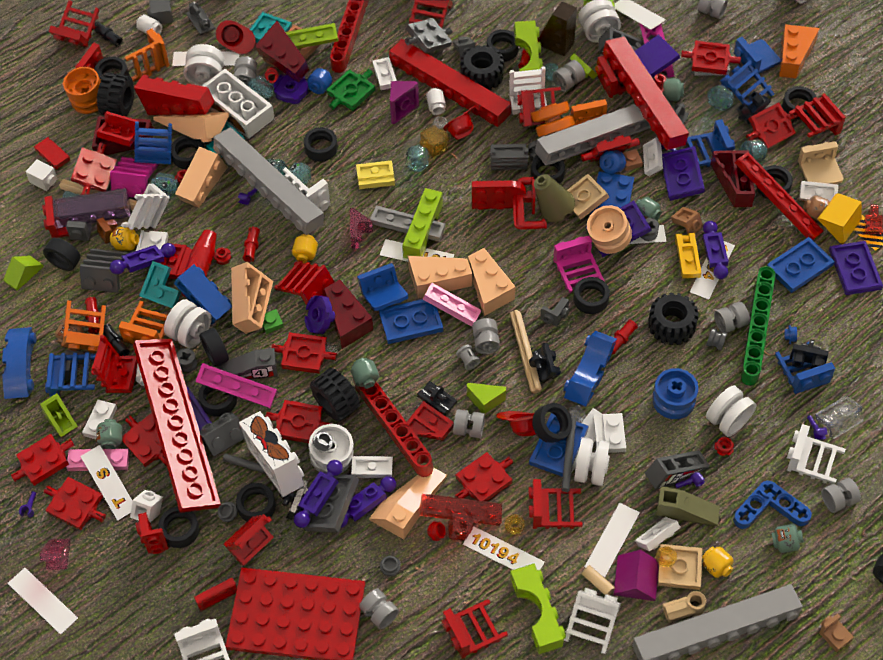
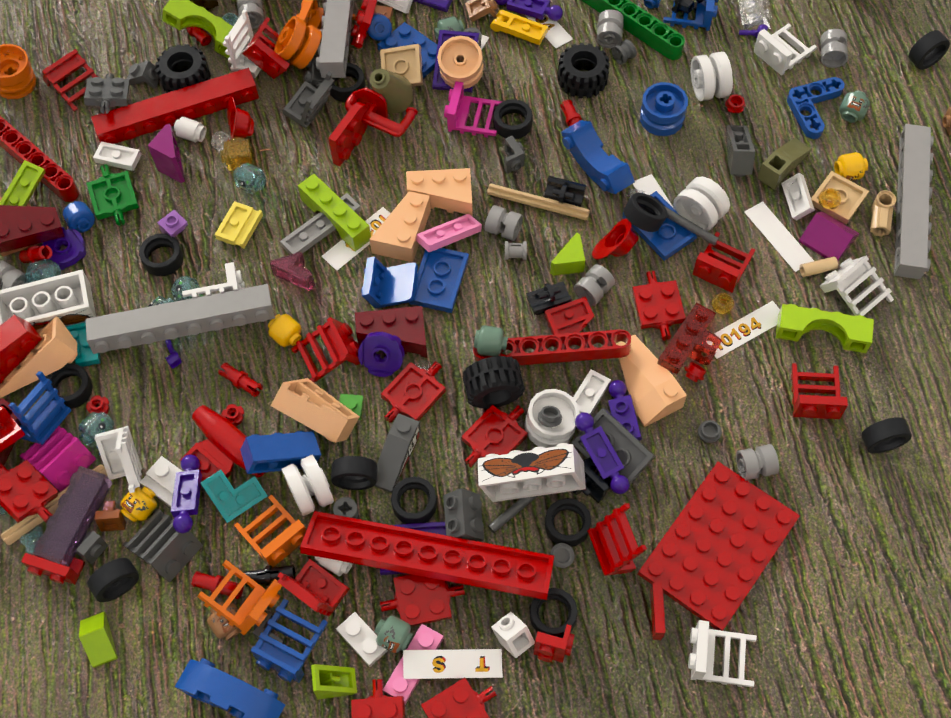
camera: 60 degrees left, 5 degrees up
(201, 177) = (118, 386): light nougat wedge -> none
(236, 385) = (419, 472): dark pink fence -> none
(346, 135) = (172, 224): none -> medium lavender bracket
(504, 36) = (161, 33): black tyre -> none
(610, 429) = (667, 180): white plate -> none
(695, 478) = (757, 140): dark purple hand -> none

